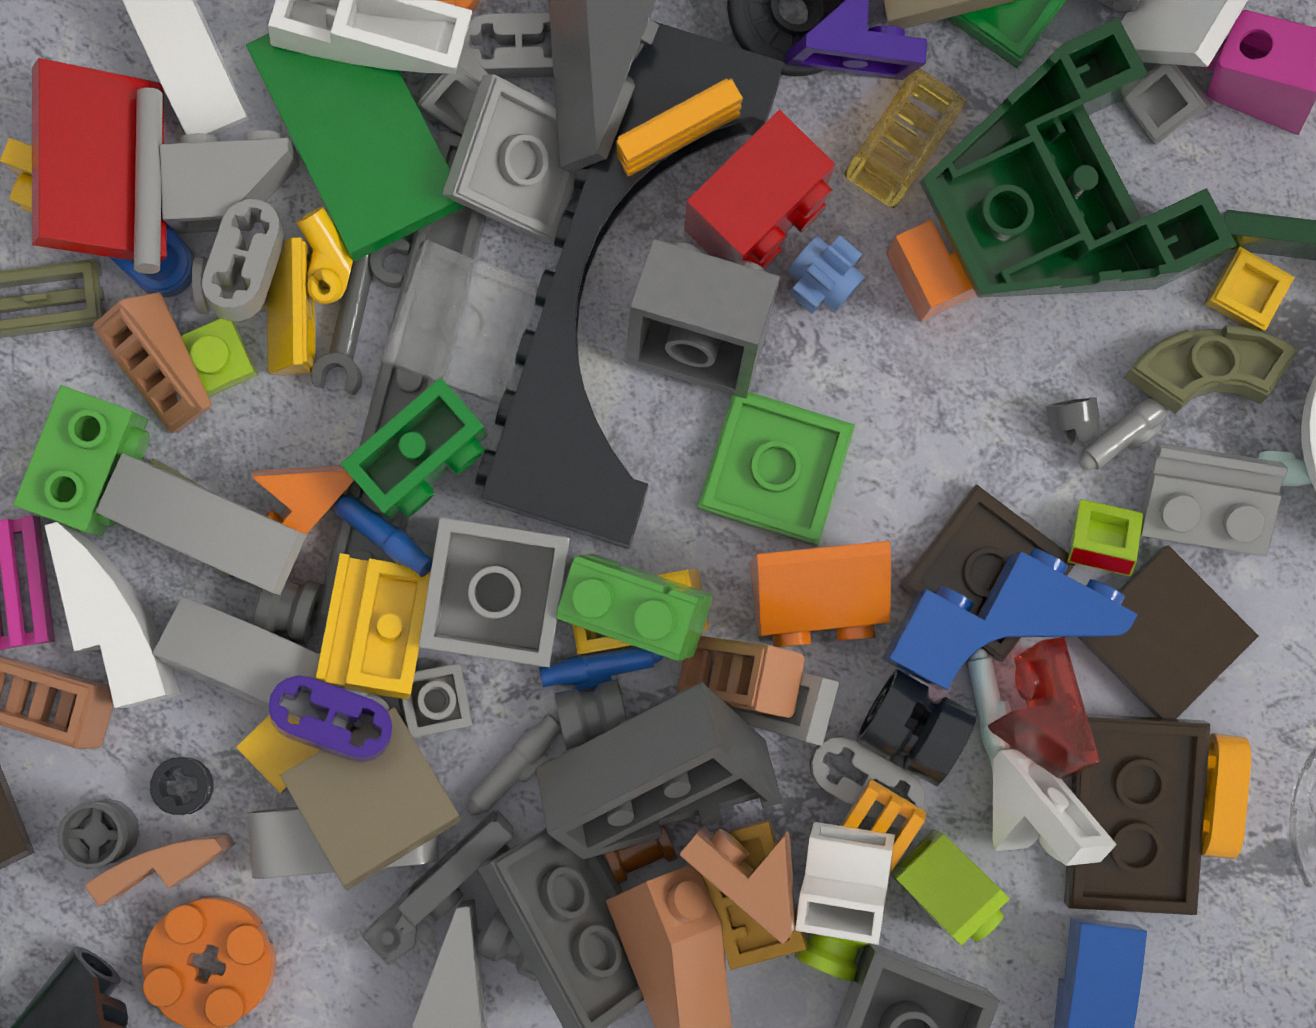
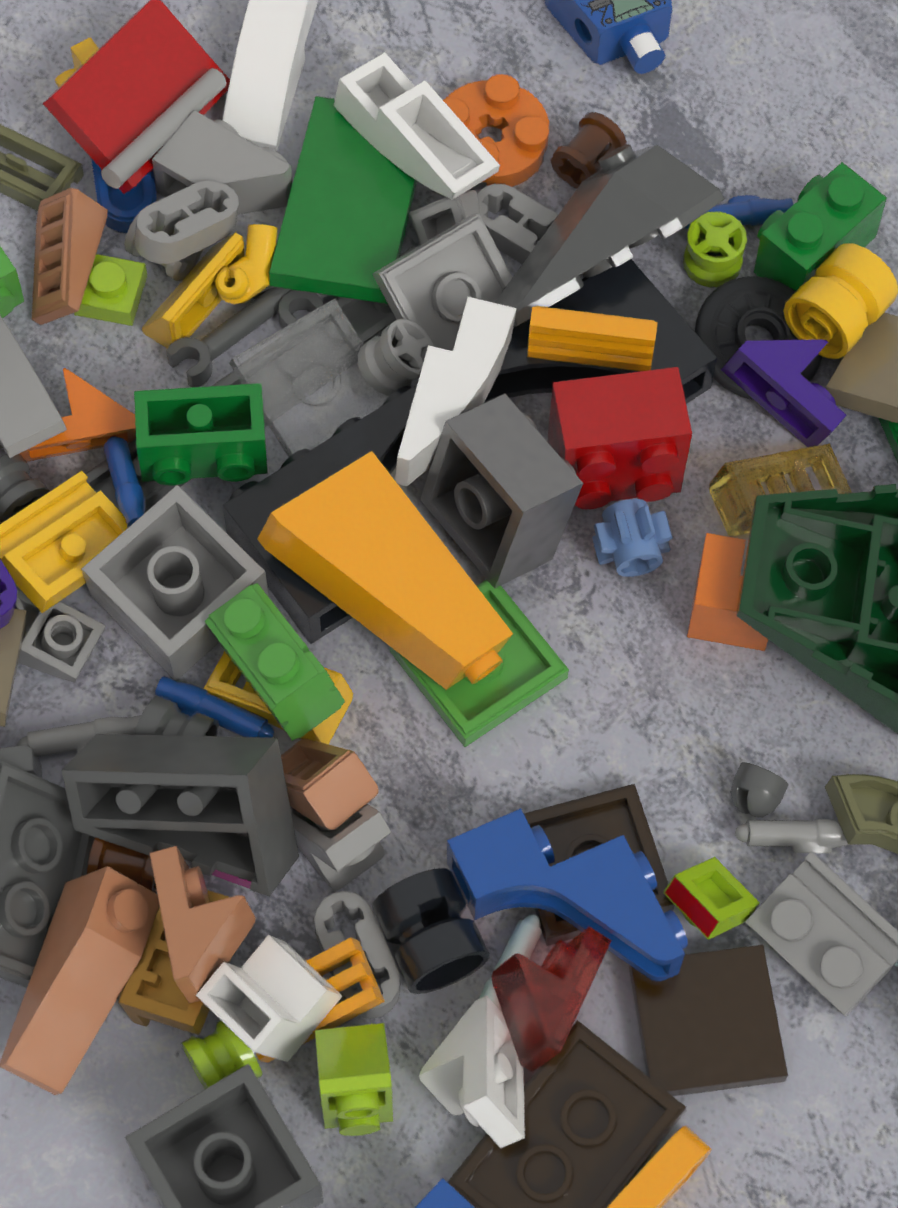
camera: 40 degrees right, 20 degrees down
(517, 254) = (394, 357): none -> light grey wheel
(598, 255) = (454, 382): none -> white slope
(665, 460) = (389, 571): none -> light orange slope
(821, 591) = (437, 758): orange slope -> none

